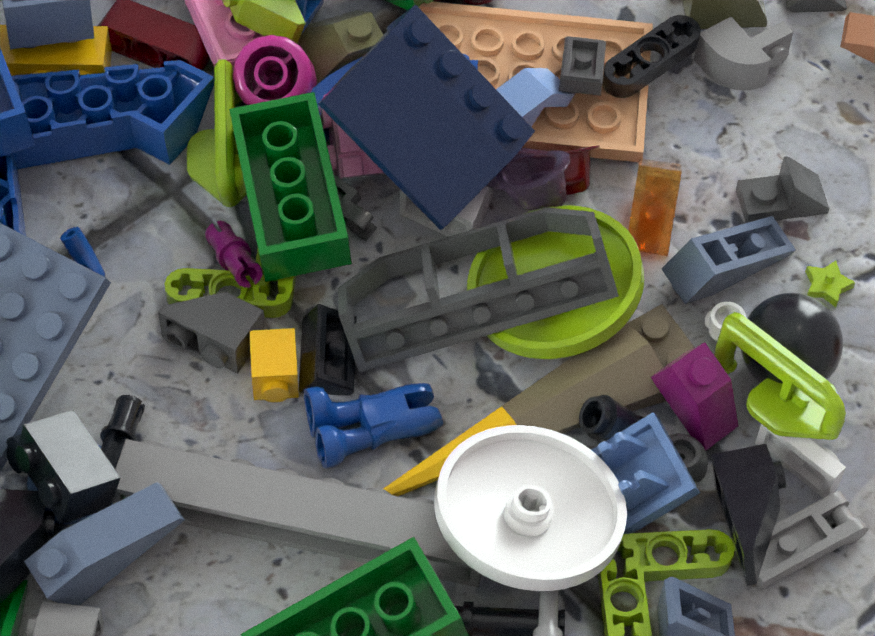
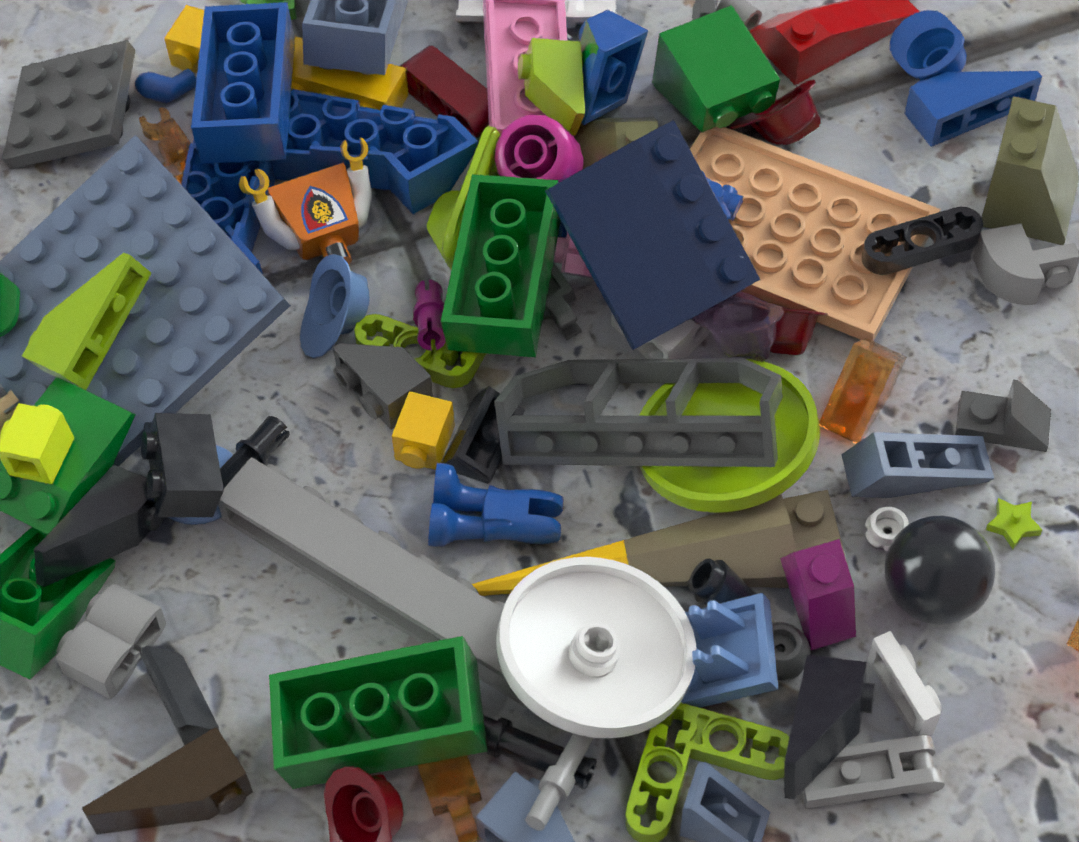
camera: 25 degrees right, 0 degrees up
(81, 186) = (318, 210): none -> torso
(81, 250) = (296, 278): blue arm -> none
(102, 545) = (185, 550): sand blue slope -> none
(137, 272) = (334, 305): none -> medium blue piece
(532, 91) = (780, 240): light blue slope -> none
(582, 65) = (844, 230): dark grey plate -> none
(800, 406) = (908, 631): lime piece -> none

